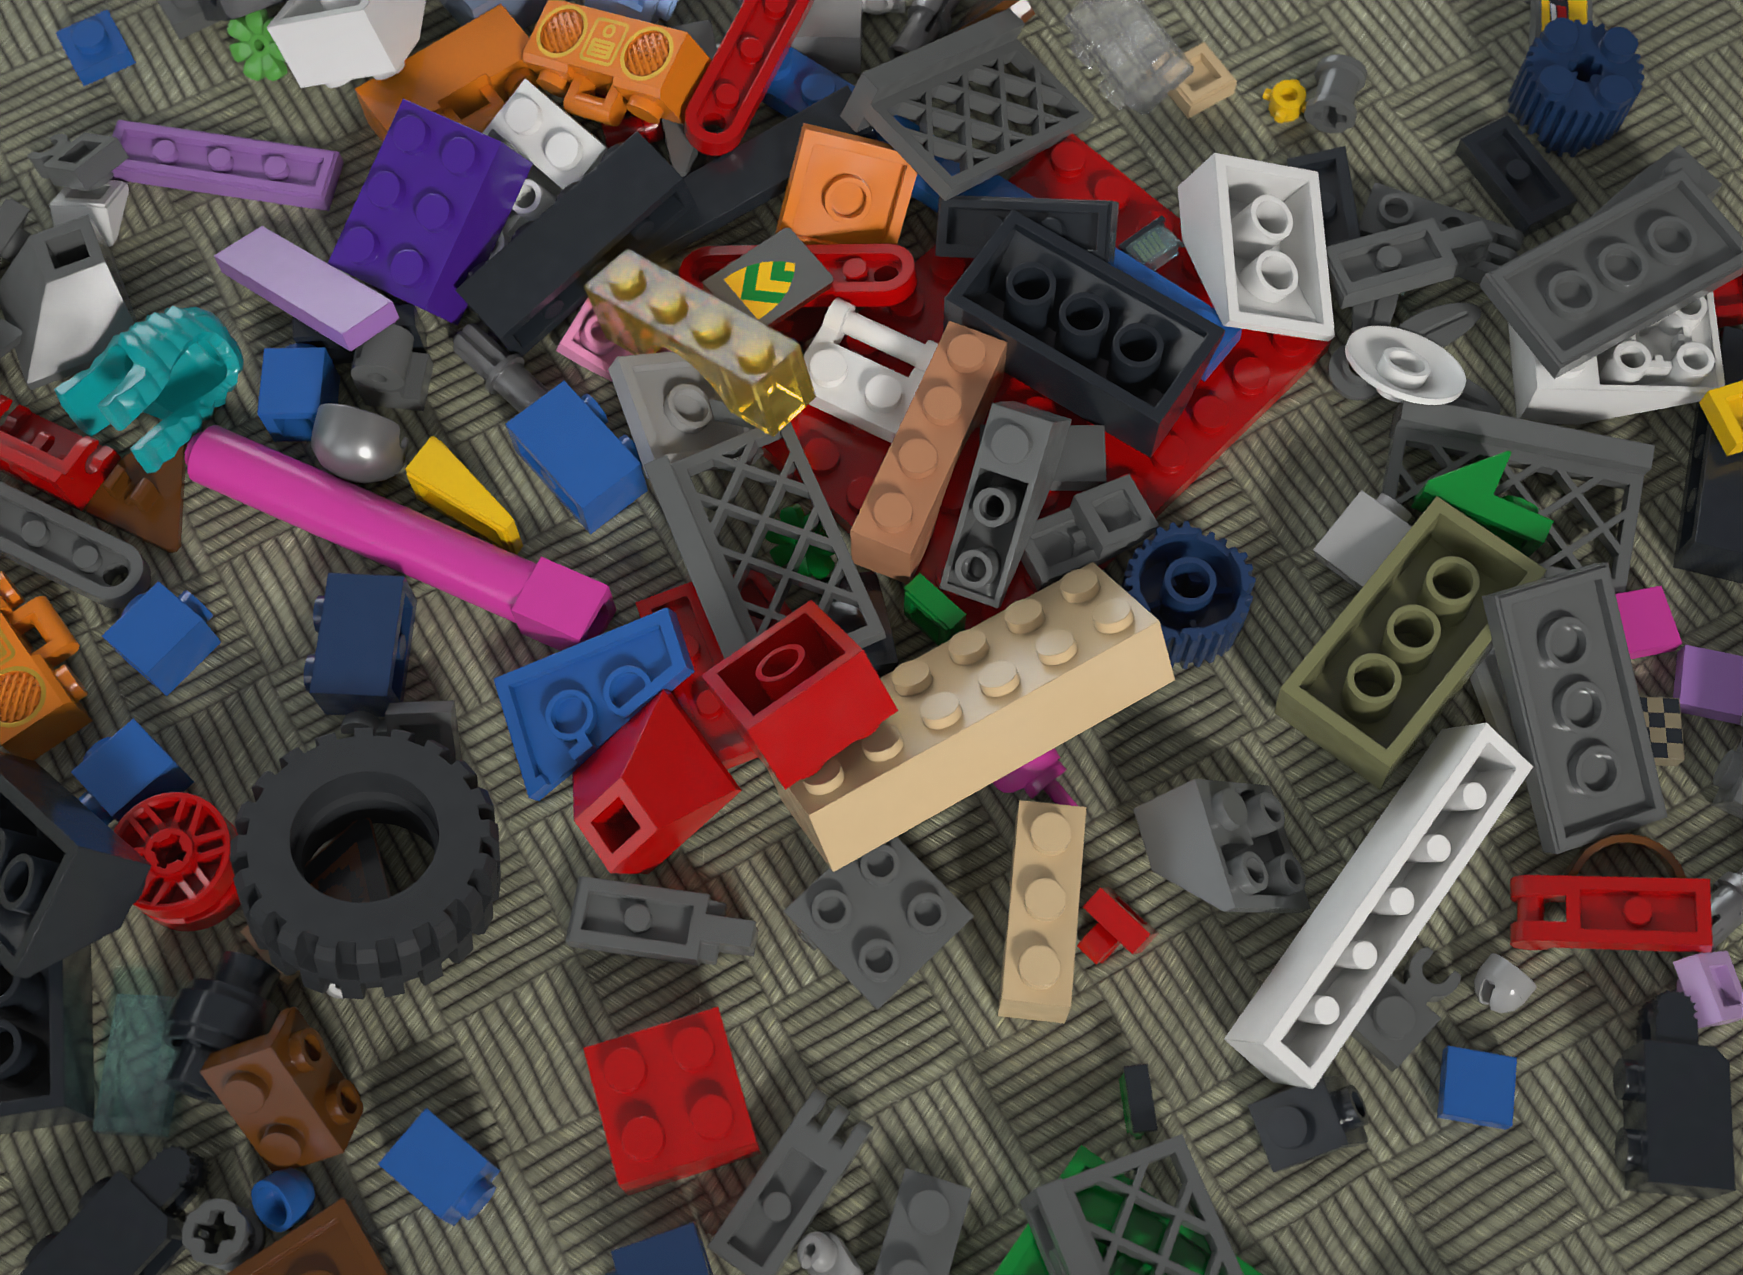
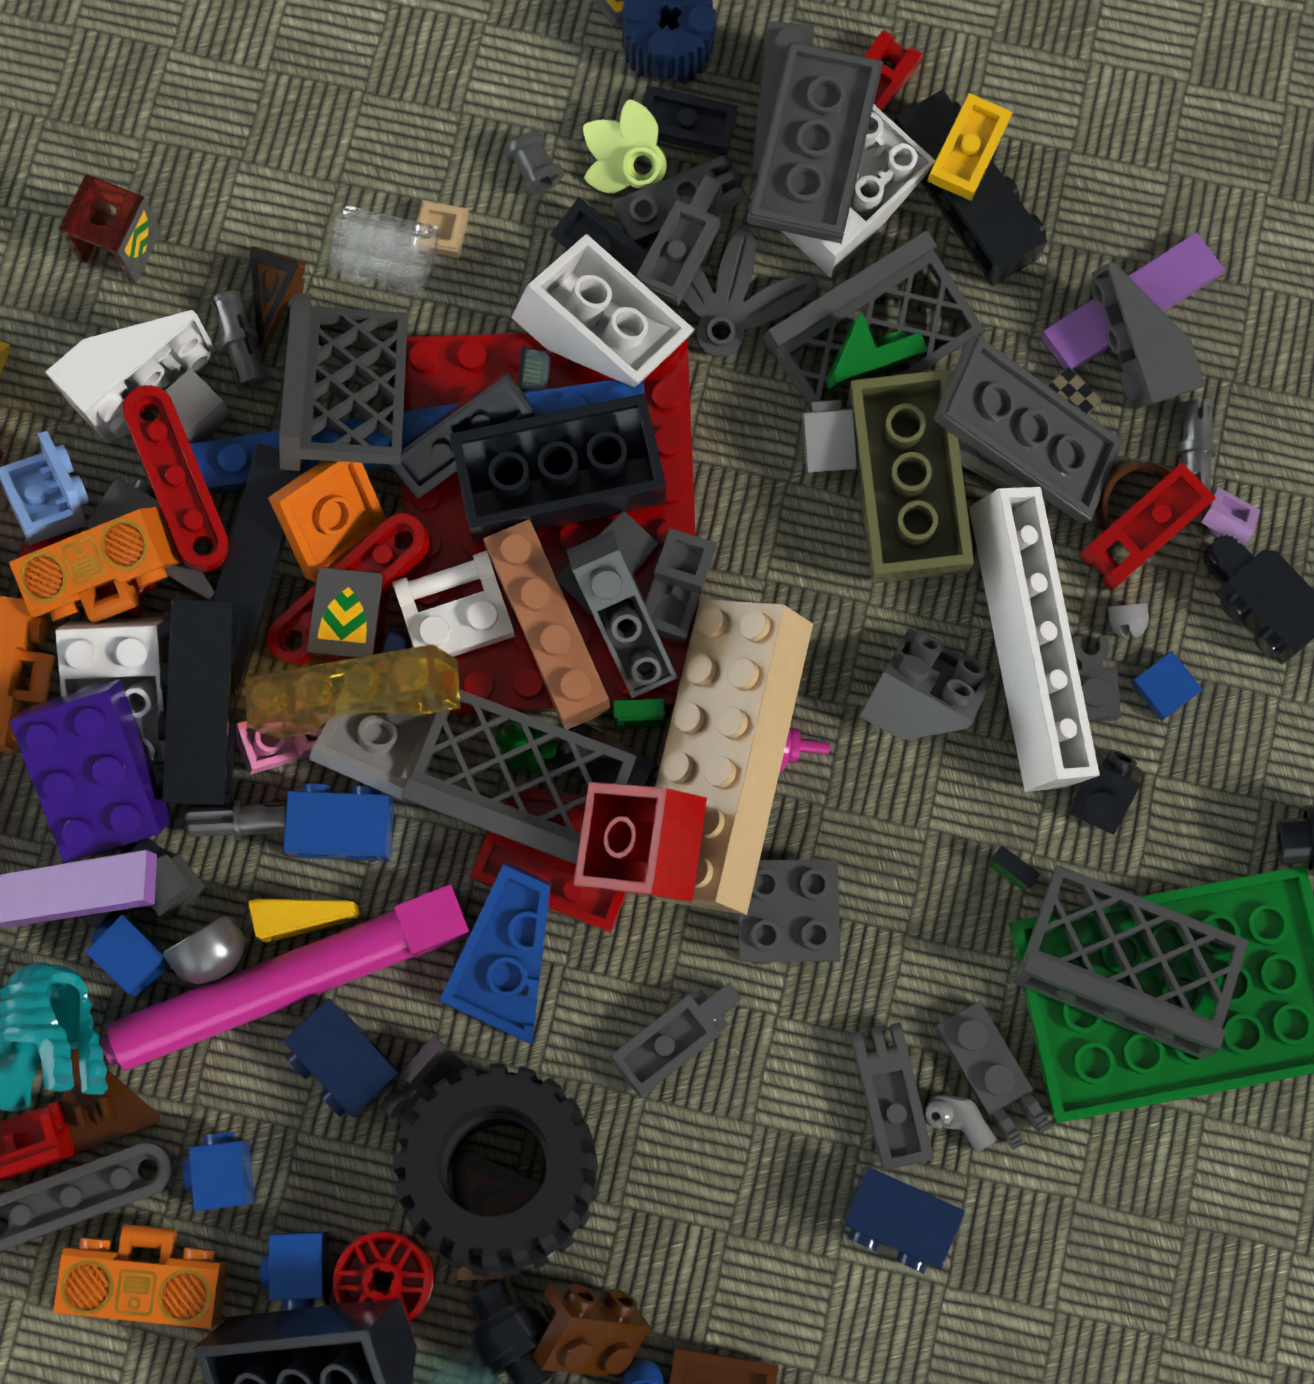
camera: 50 degrees left, 10 degrees up
(441, 1169) = (709, 1279): blue brick -> none
(649, 788) = (593, 971): red slope -> none
(671, 1101) = (789, 1118): red brick -> none
(1042, 912) = (858, 804): tan arch -> none
(1116, 925) = (912, 788): red tile -> none
(1212, 586) = (760, 542): dark blue brick -> none
(1286, 100) = (507, 192): yellow piece -> none
(1405, 365) = (750, 310): white dish -> none
(1430, 144) = (618, 147): none -> yellowish green plate
(1647, 622) = (1011, 335): dark pink tile -> none

